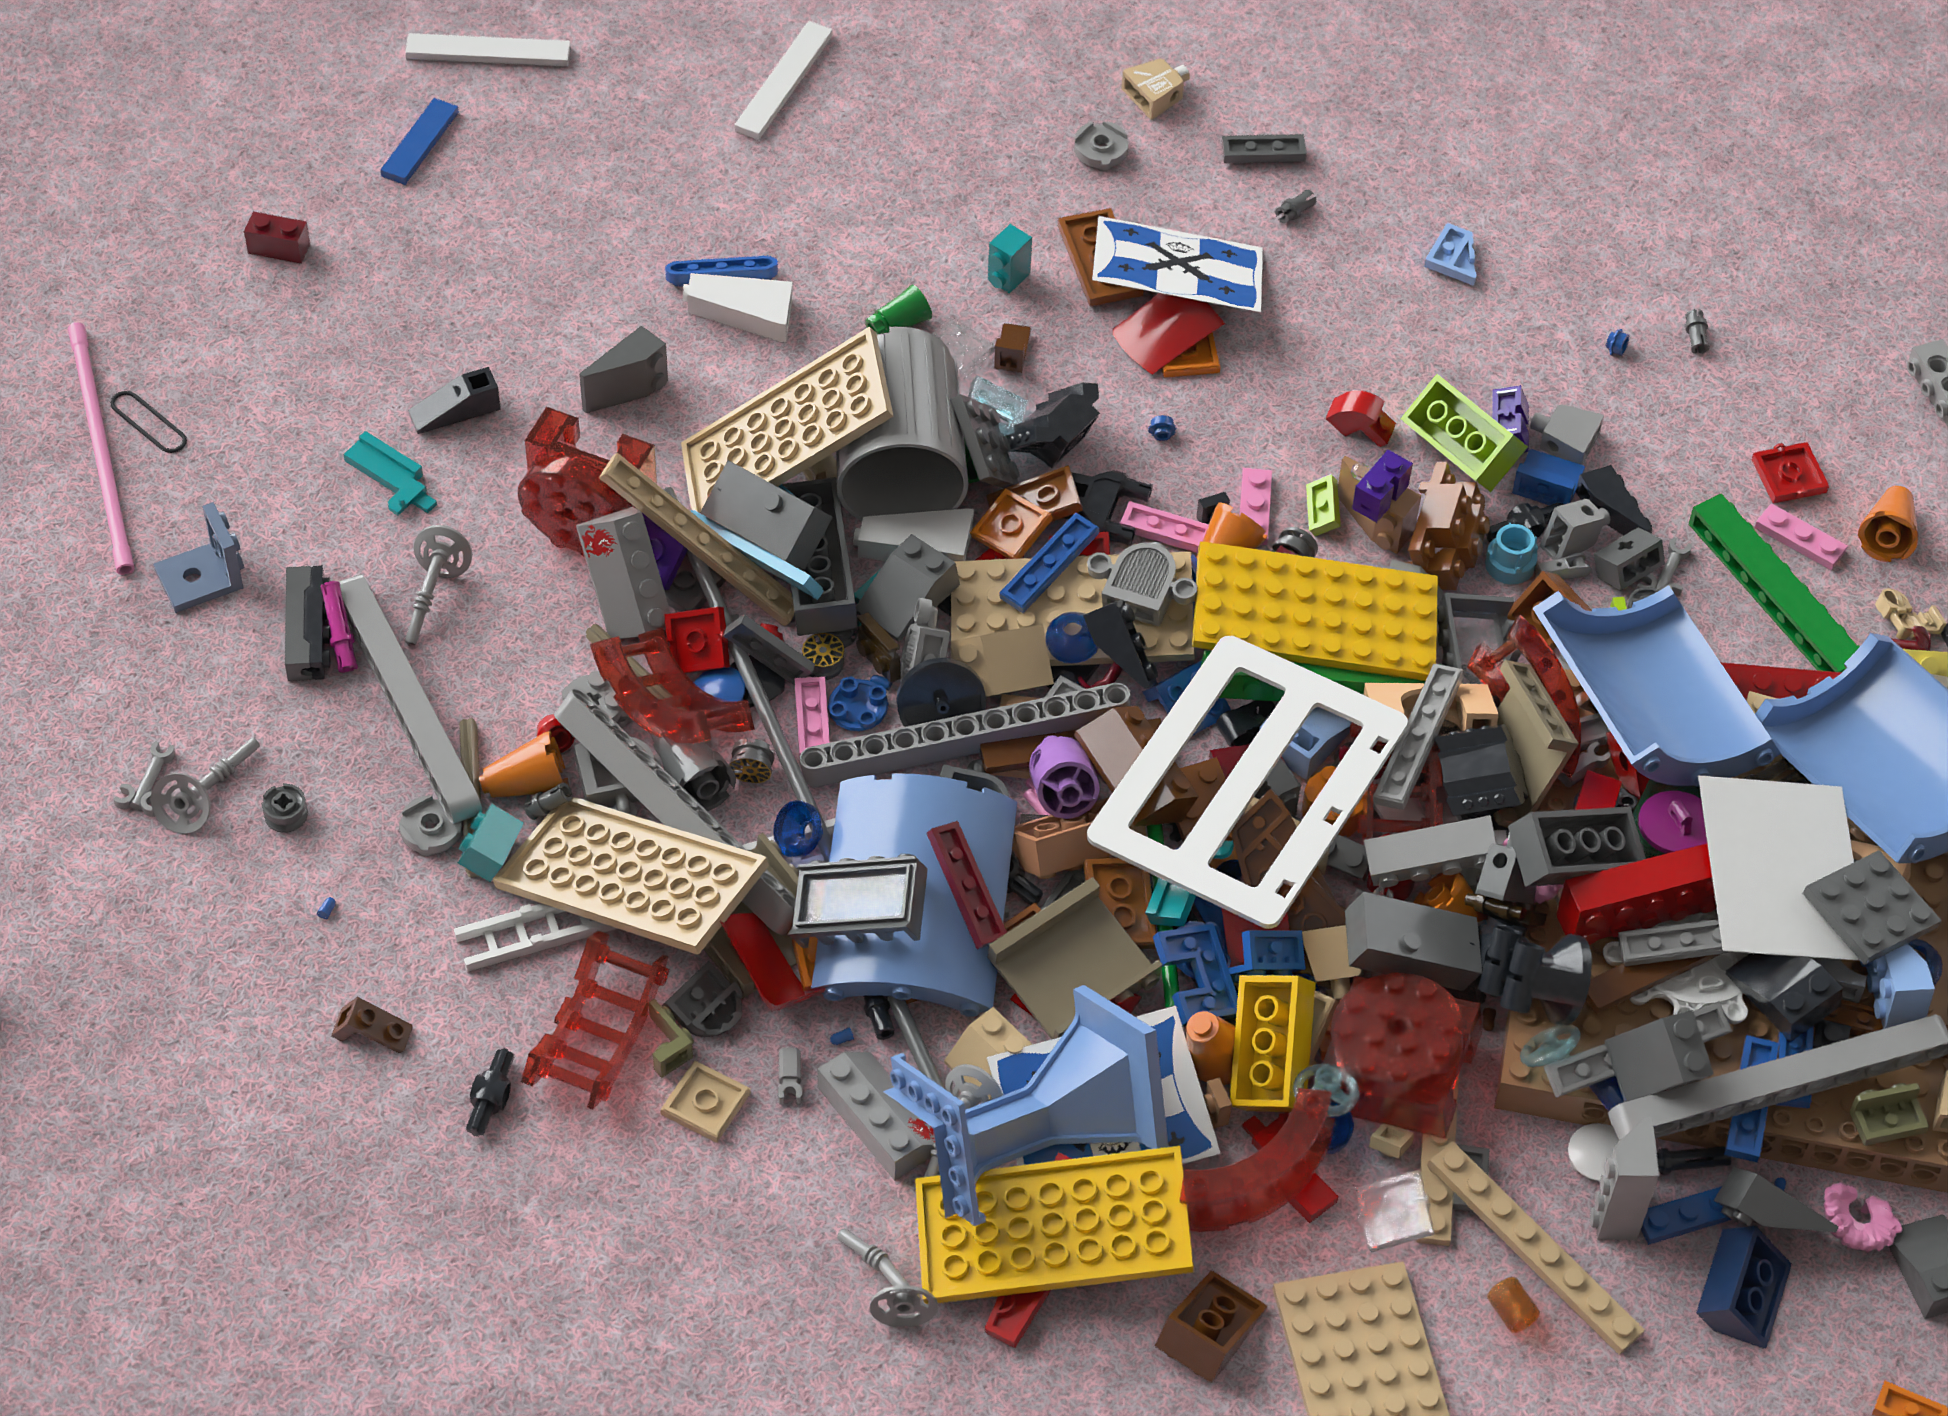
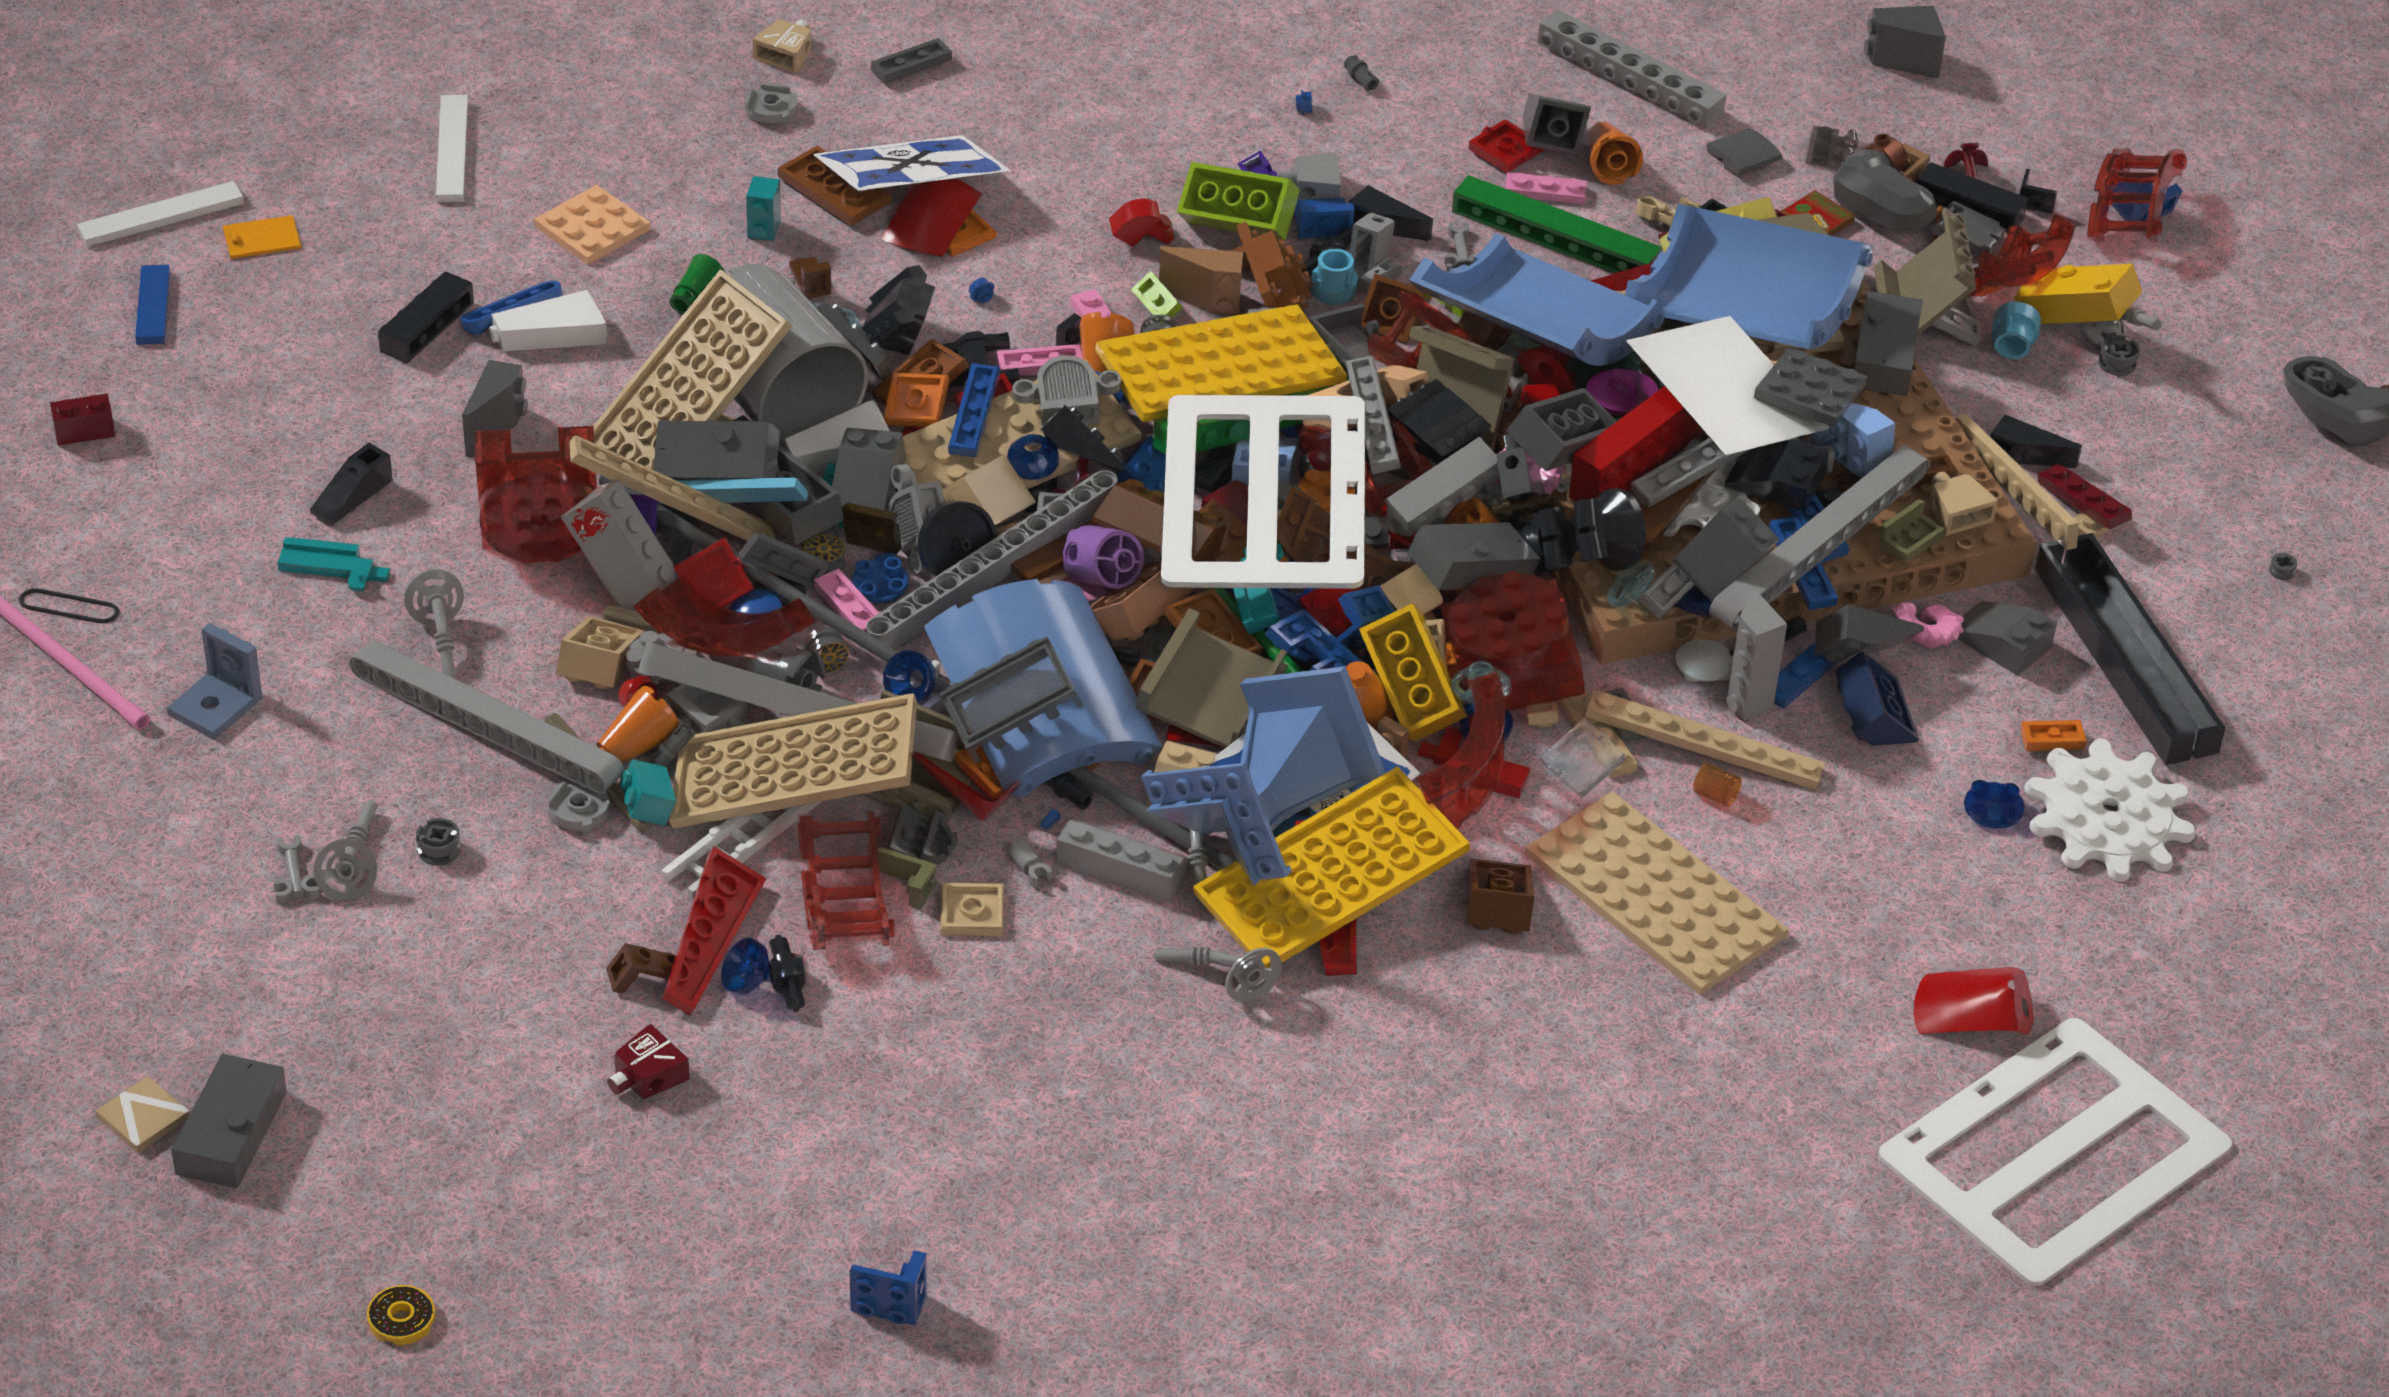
camera: 30 degrees left, 10 degrees down
(302, 1131) = (648, 1065): none -> dark red torso
(305, 624) = (347, 698): piece -> none
(326, 908) = (533, 902): blue piece -> none
(341, 638) = (391, 697): dark pink pin -> none
(454, 1070) = (740, 965): none -> clear blue piece
(467, 1000) = (717, 912): none -> red wing
(547, 666) = (596, 652): none -> tan slope
(559, 107) = (261, 236): none -> light orange container
(638, 250) = (426, 317): none -> black brick
(854, 210) = (592, 224): none -> light nougat plate
(966, 884) = (1091, 652): dark red plate -> none
(1294, 207) = (969, 95): dark grey pin -> none
(1380, 484) = (1209, 251): dark purple piece -> none
(1453, 254) = (1127, 85): light blue wing -> none
(1629, 558) = (1430, 240): dark grey brick -> none
(1850, 468) = (1554, 123): none -> dark grey slope

